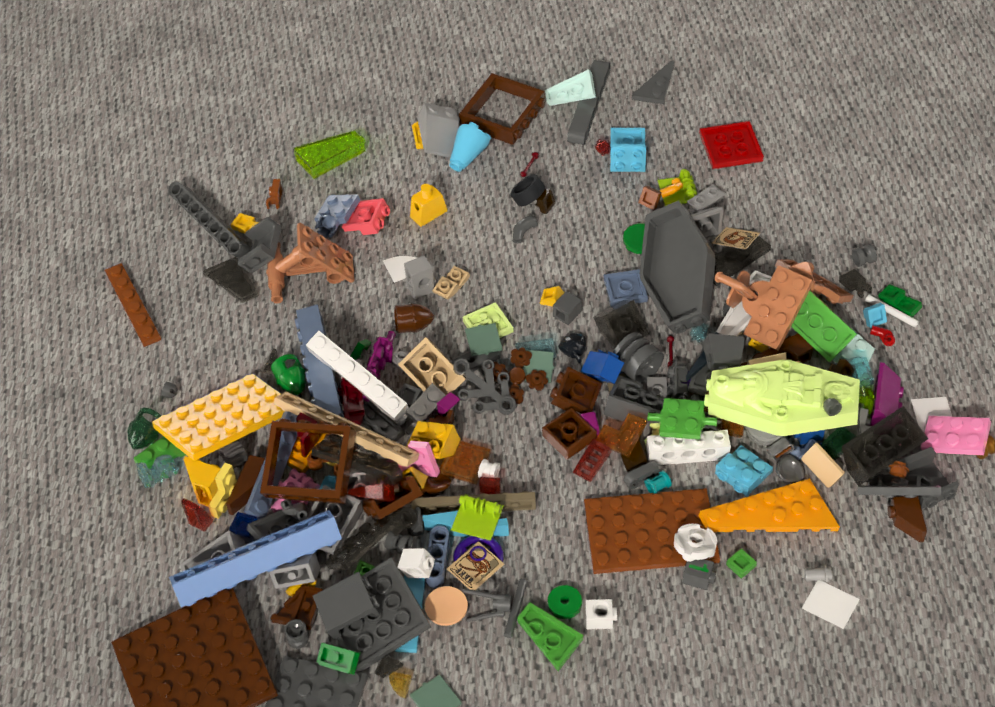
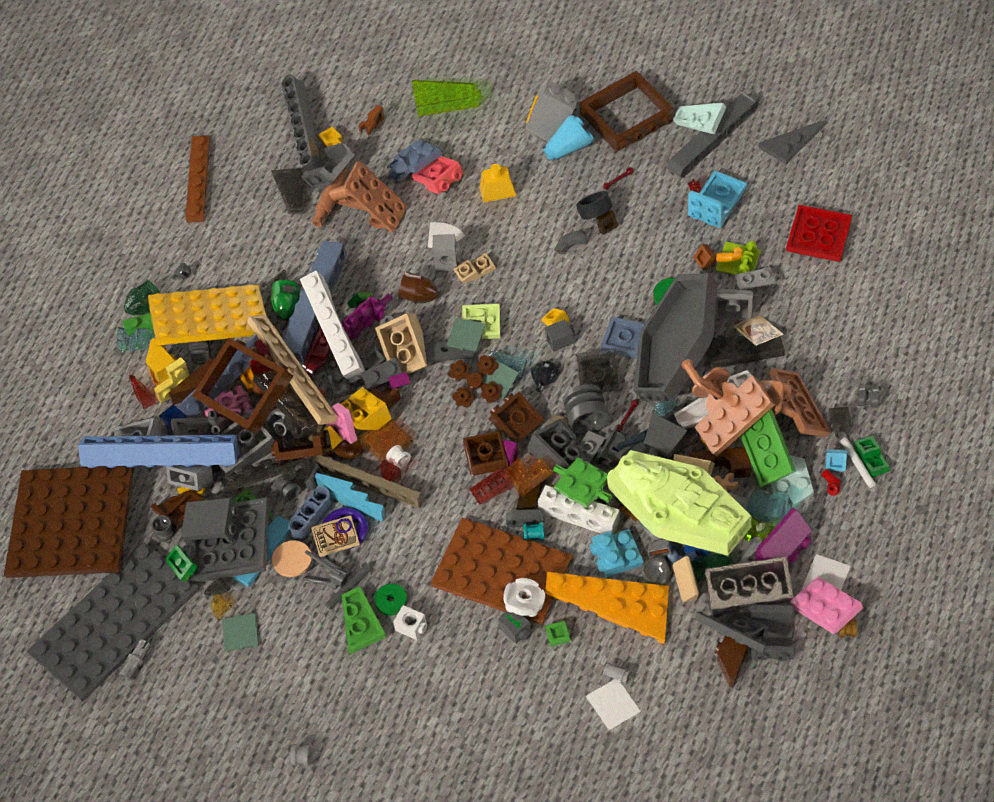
camera: 30 degrees right, 5 degrees up
(381, 492) = (283, 436): clear red slope -> none
(416, 563) = (284, 511): white brick -> none
(477, 517) = (357, 494): lime hinge -> none
(487, 388) = (439, 382): dark grey plant -> none
(602, 366) = (548, 404): blue brick -> none
(832, 406) = (708, 529): dark grey hinge -> none
(843, 367) = (756, 501): dark brown tile -> none
(898, 469) = (746, 612): dark orange plate -> none

